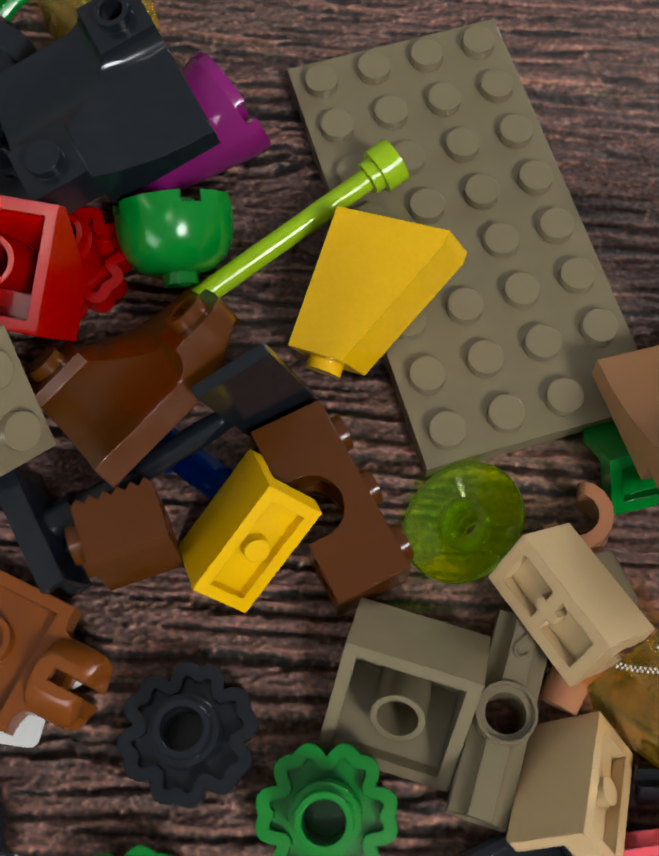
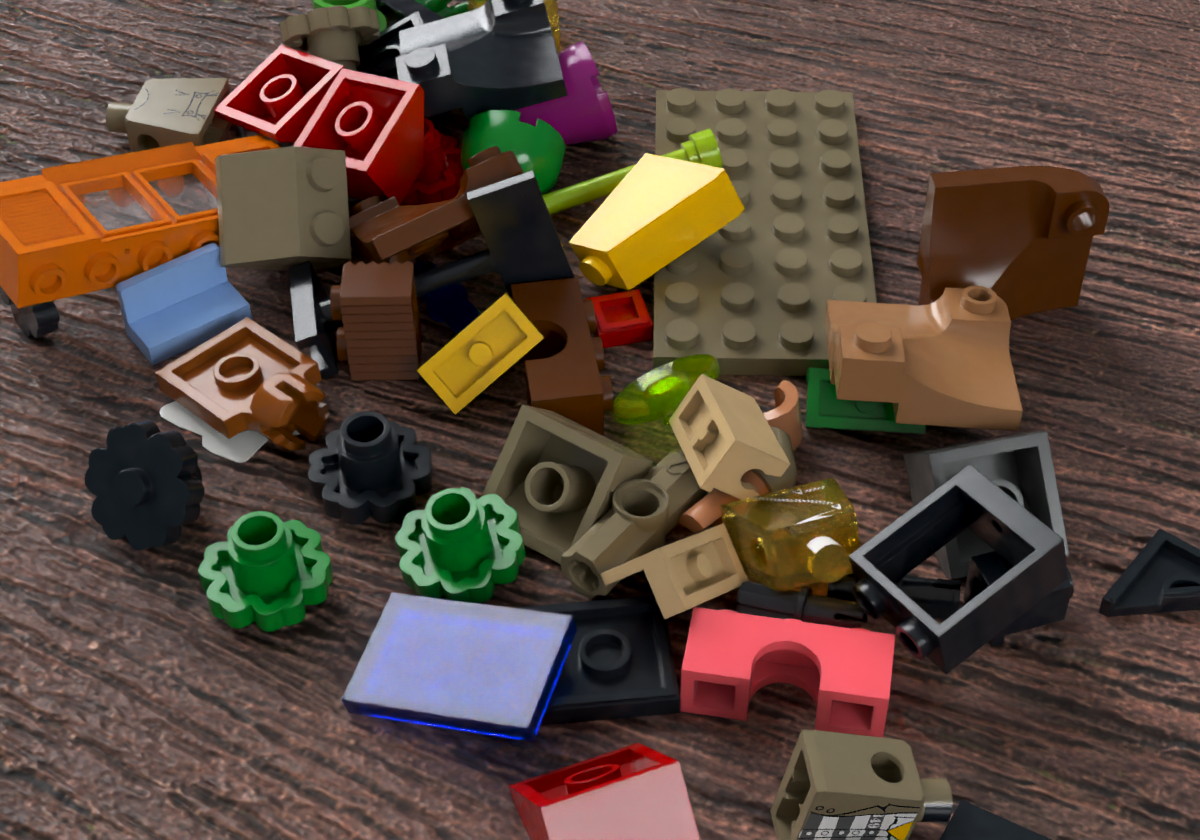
camera: 20 degrees right, 25 degrees down
(368, 414) = (622, 319): none -> red tile

